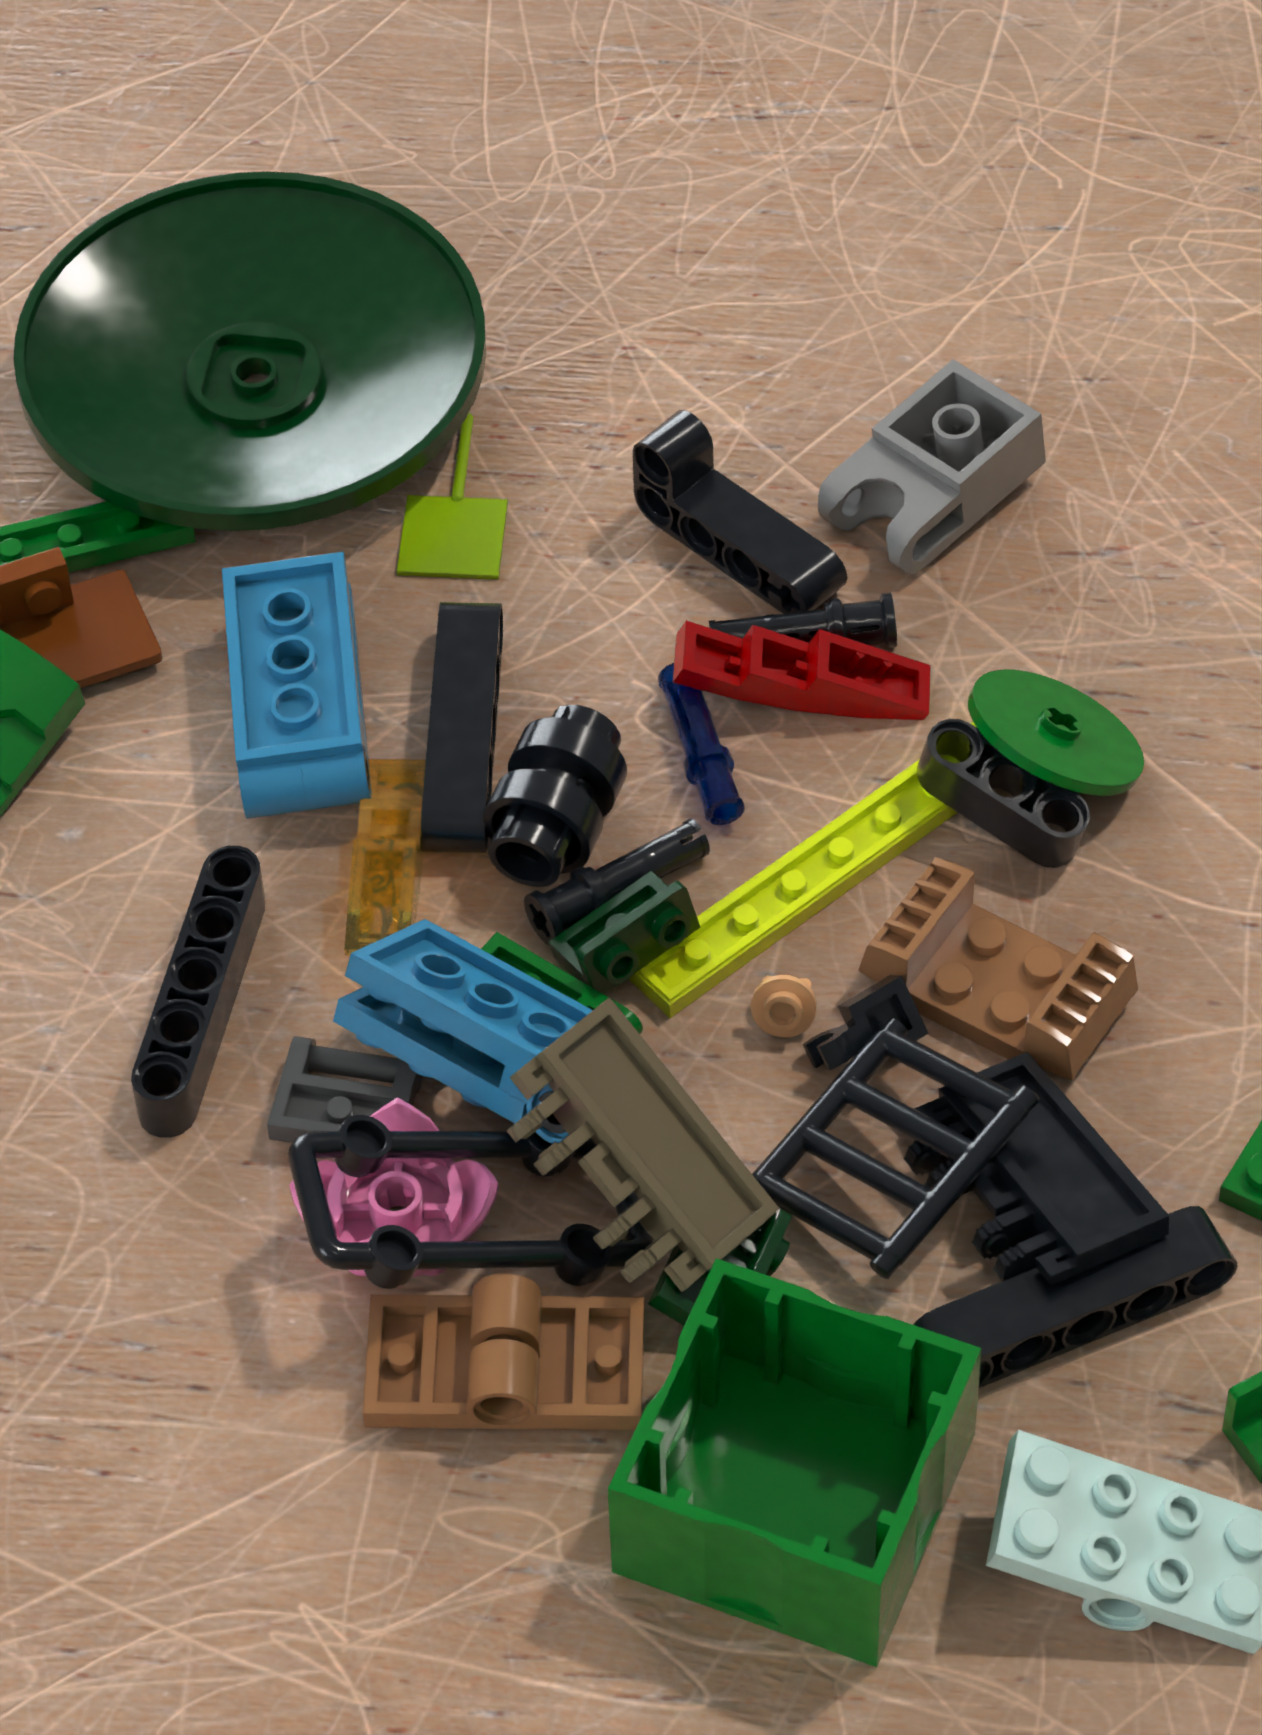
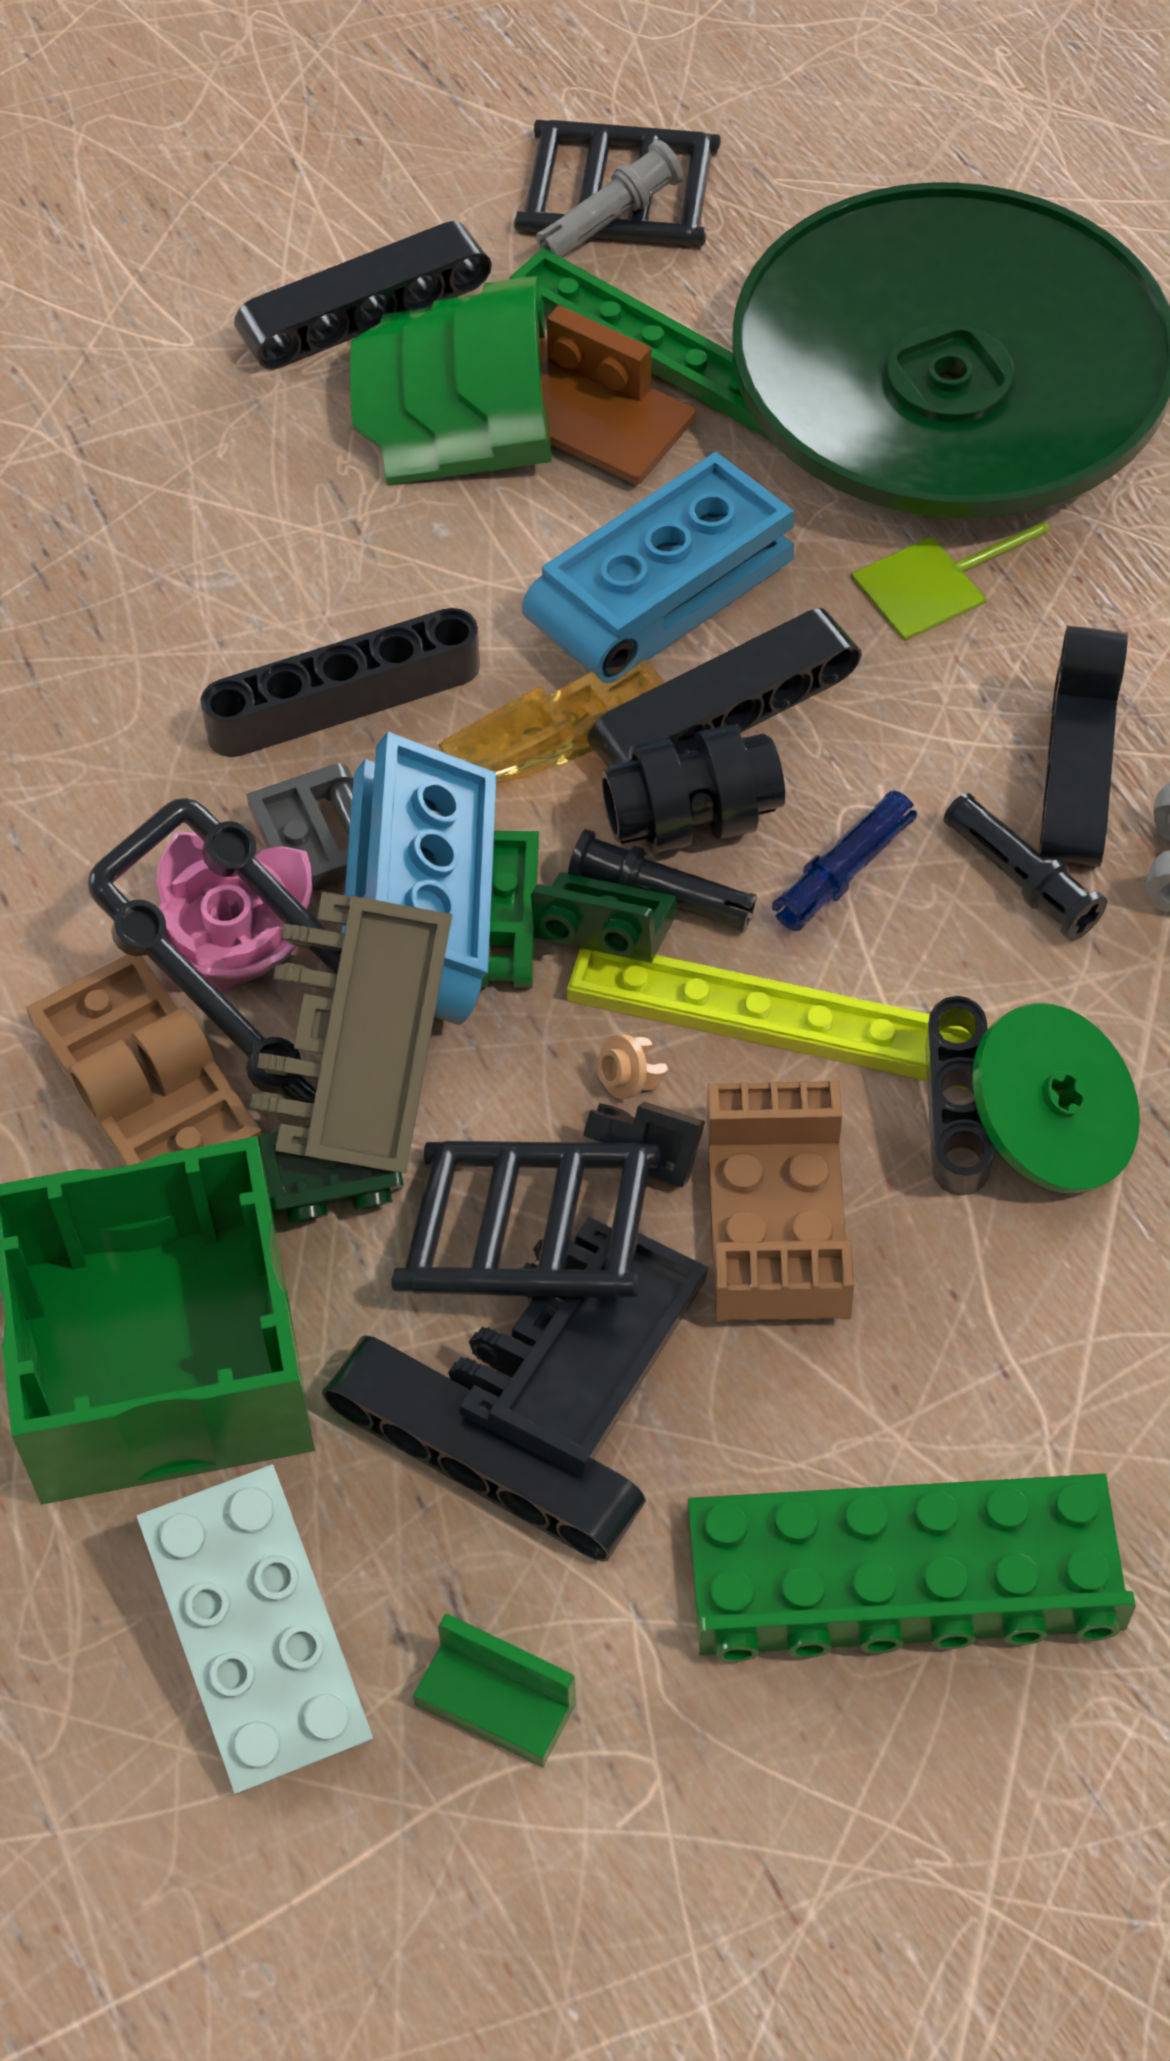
camera: 55 degrees right, 5 degrees up
(814, 677) = (972, 889): red slope -> none

